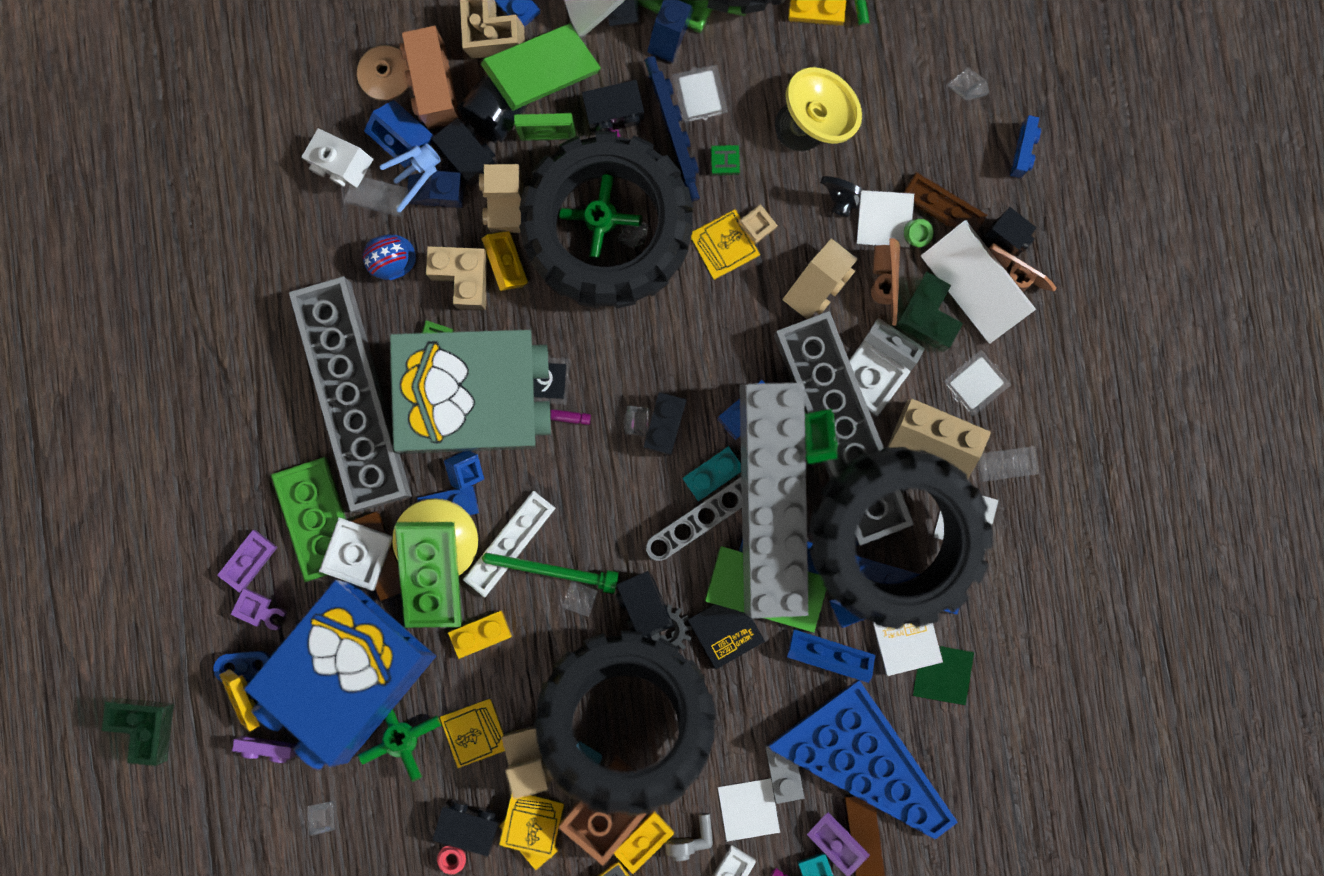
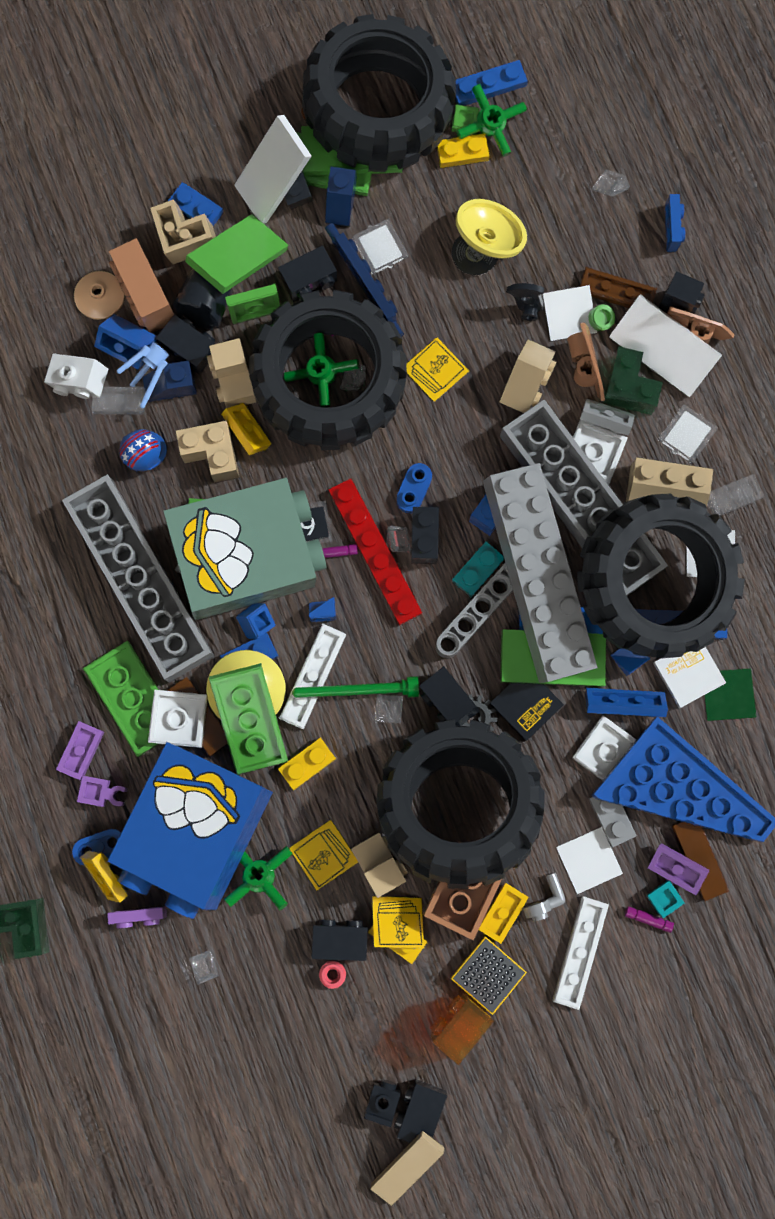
camera: 15 degrees left, 5 degrees down
(536, 476) = (322, 611): none -> blue slope
(608, 427) = (375, 552): none -> red plate
(667, 368) = (414, 487): none -> blue plate
(725, 160) = (417, 297): green tile -> none
(757, 224) = (460, 344): tan tile -> none
(795, 697) = (603, 748): none -> white tile
(820, 436) = (566, 506): green tile -> none

